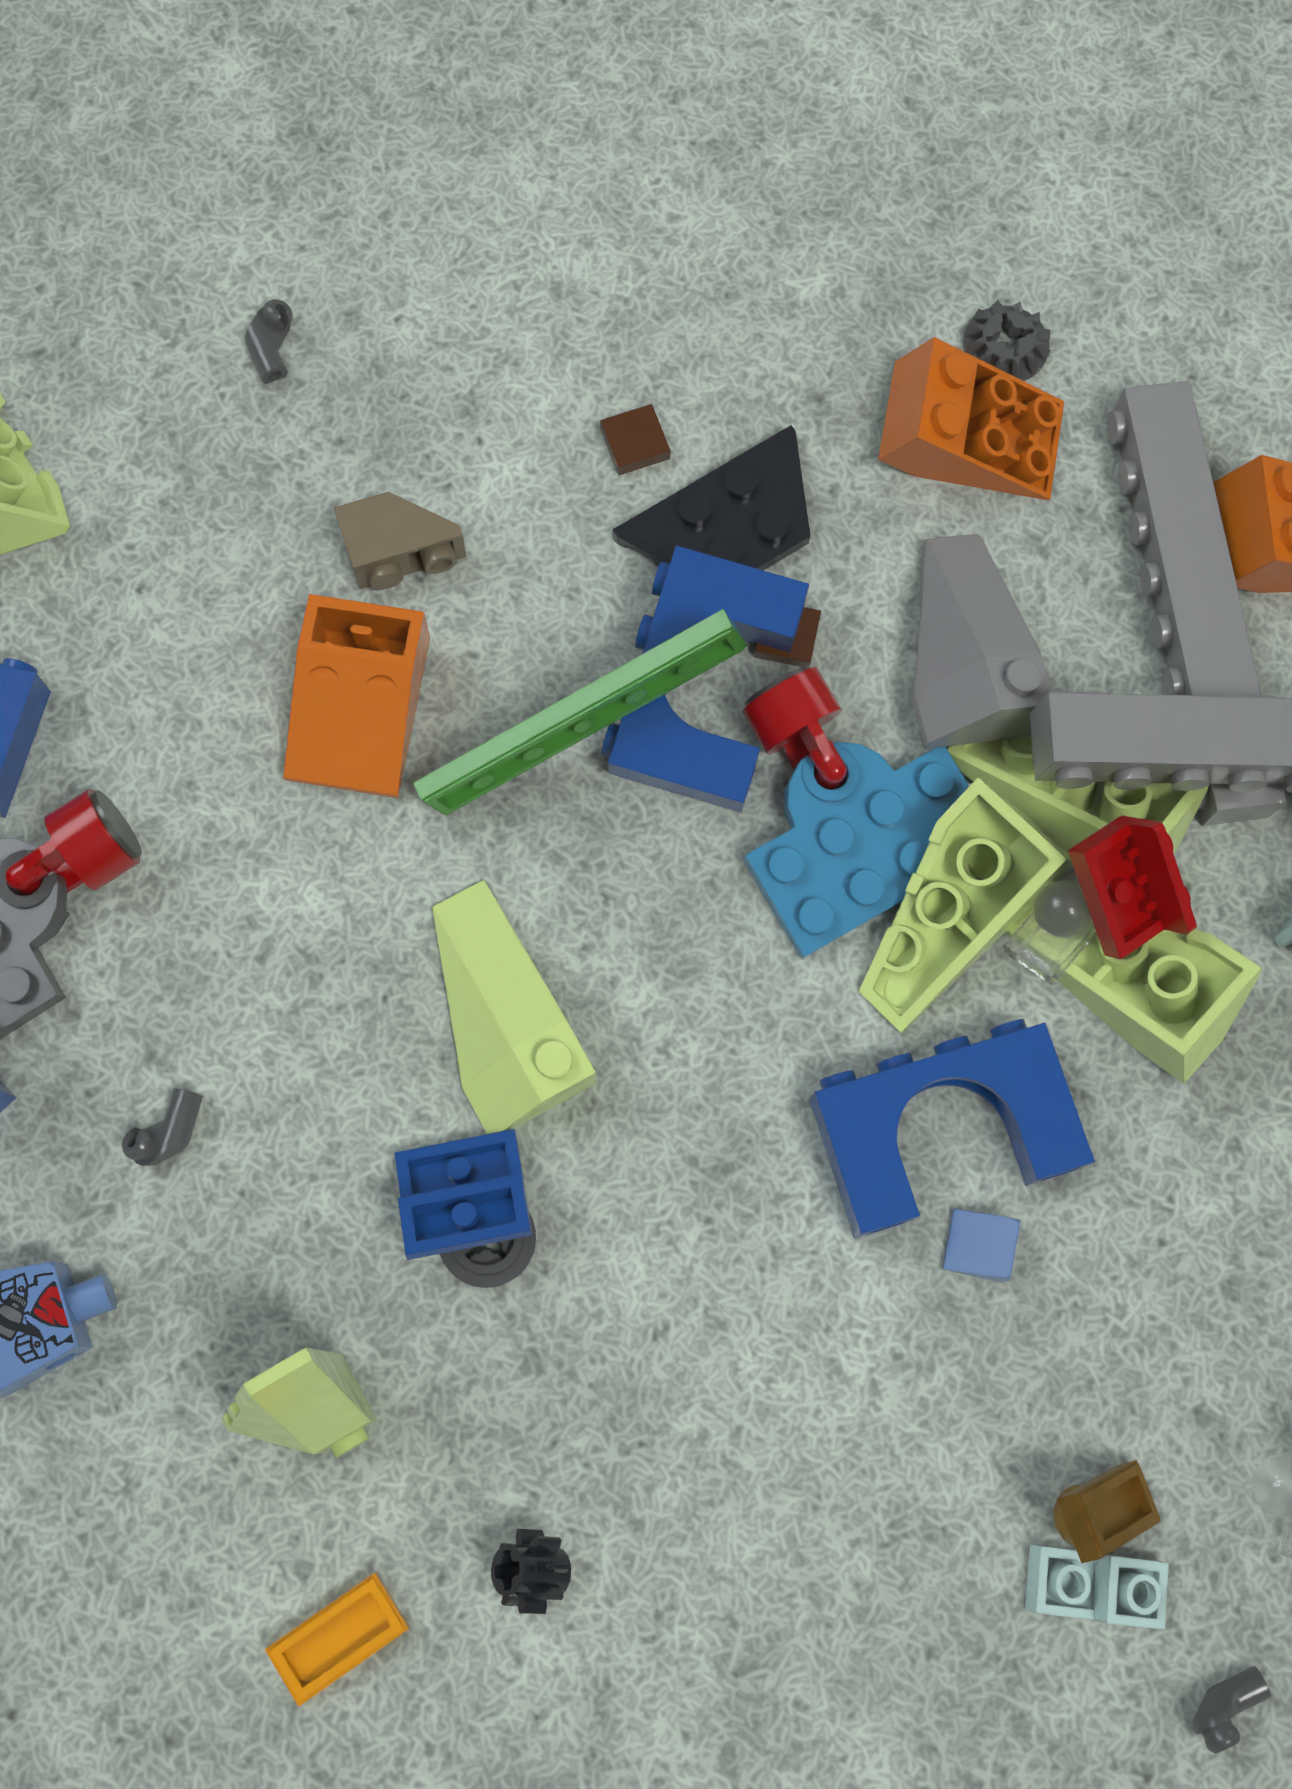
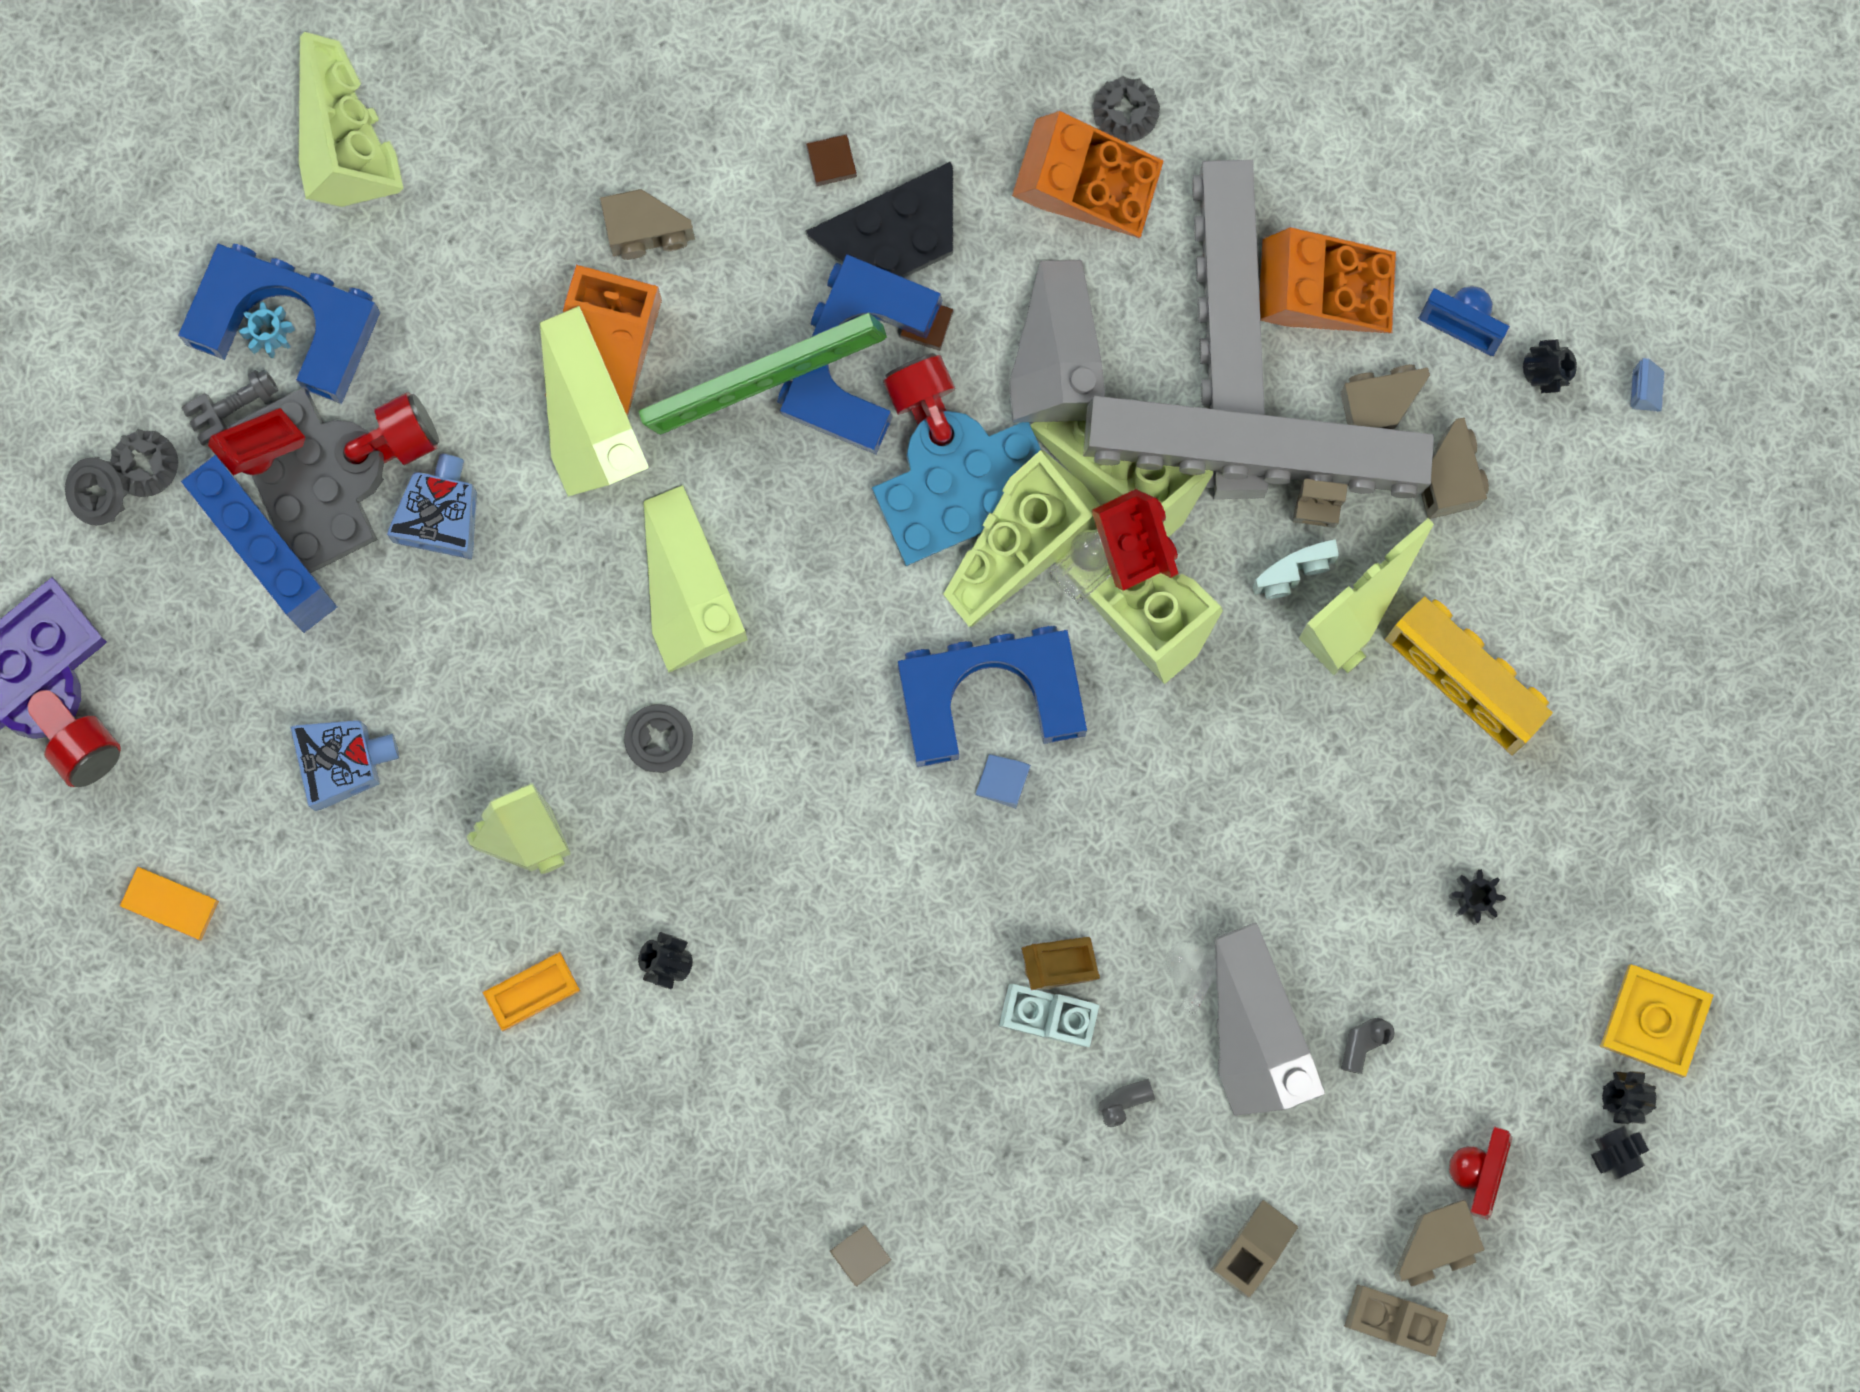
camera: 10 degrees right, 5 degrees up
(145, 949) = (437, 511): none -> medium blue torso
(168, 1136) = (442, 645): dark grey arm -> none
(266, 337) = (560, 51): dark grey arm -> none
(341, 799) = (586, 419): none -> yellowish green wedge
(462, 1194) = (644, 705): blue slope -> none

